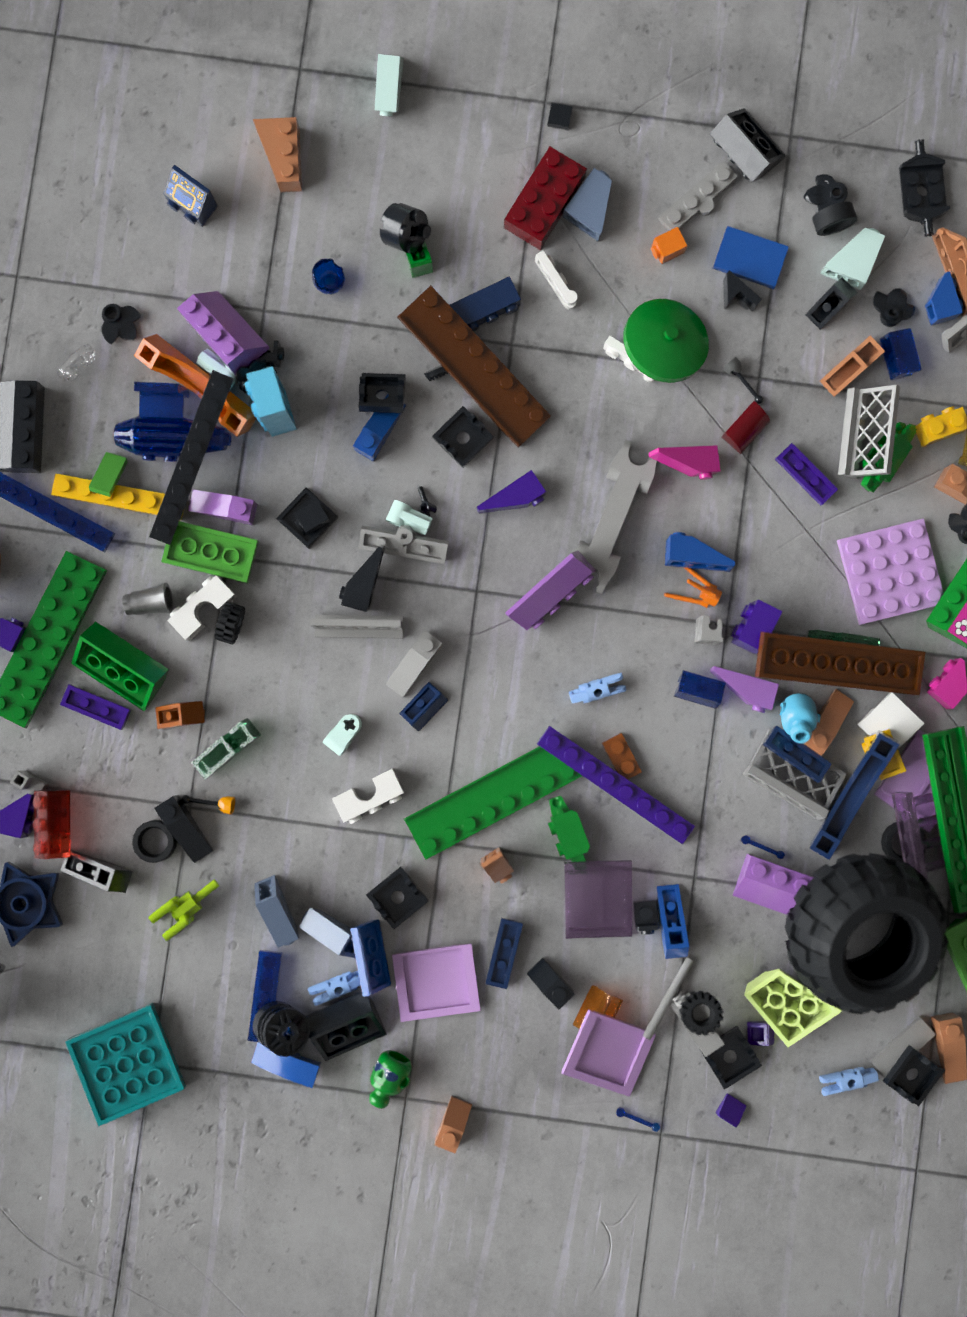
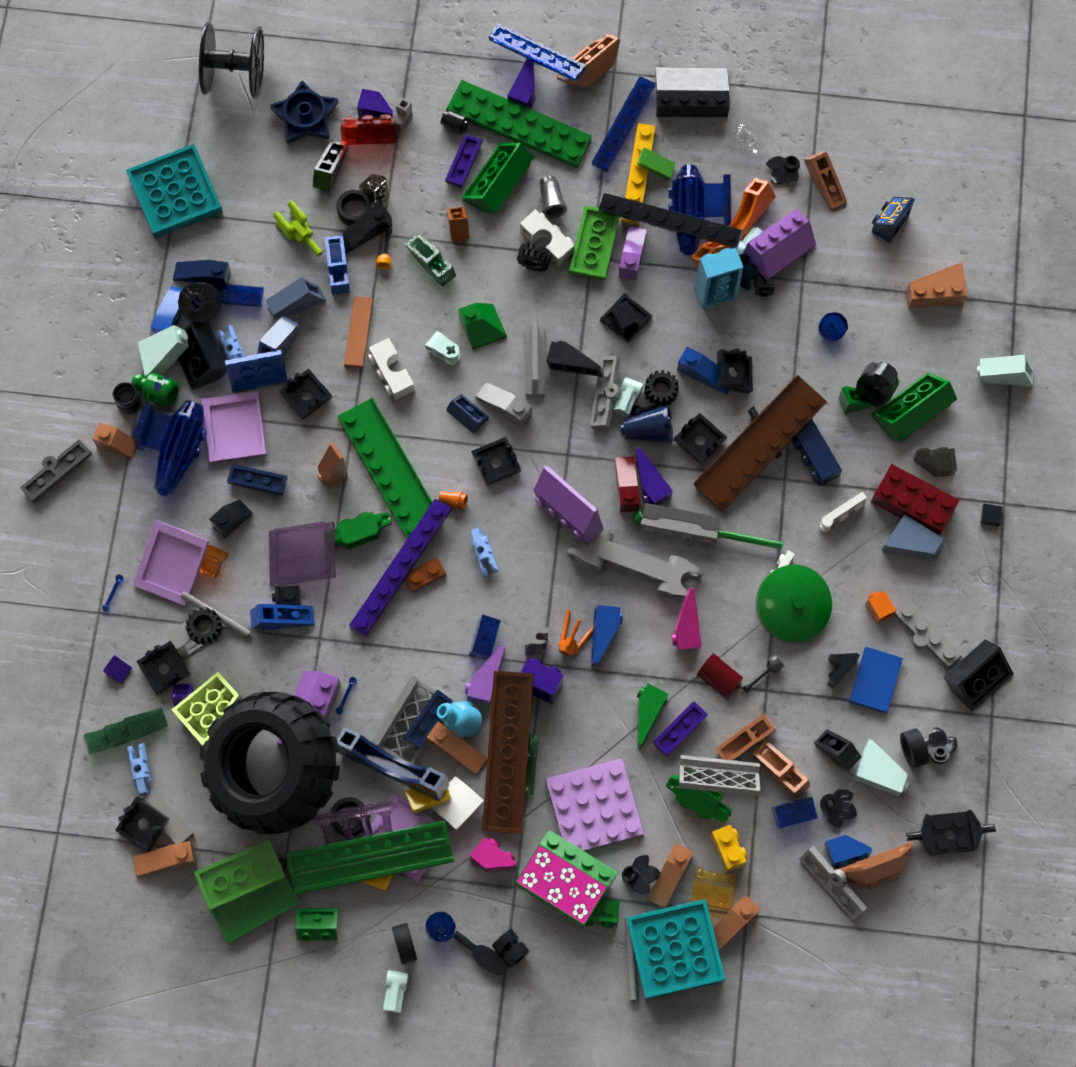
camera: 90 degrees right, 15 degrees down
(41, 718) = (454, 121): none -> black brick
(132, 815) = (375, 188): none -> clear smoke slope
(134, 273) = (825, 179): none -> nougat slope
(229, 861) = (337, 264): none -> blue slope
(236, 1025) = (202, 271): none -> dark blue slope
(312, 687) = (481, 324): none -> green slope
(317, 835) = (358, 332): none -> nougat tile
(341, 1072) = (162, 349): none -> light aqua slope
(395, 466) = (661, 378): none -> black tyre
(400, 1113) = (127, 398): none -> black wheel
(428, 187) = (915, 406): none -> green slope
(449, 494) = (650, 426): none -> dark blue cone
(456, 1051) = (174, 437): none -> clear blue piece
(488, 1194) = (55, 470): none -> dark grey hinge
(495, 661) = (502, 450): none -> black piece
(498, 169) = (937, 462): none -> clear smoke slope
(516, 523) = (627, 484): none -> dark red slope
(532, 723) = (454, 499): none -> orange cone
(571, 451) = (690, 526): none -> piece
(782, 506) = (649, 707): none -> green slope
(803, 1098) = (125, 731): none -> clear green slope
(818, 401) = (746, 738): none -> nougat slope

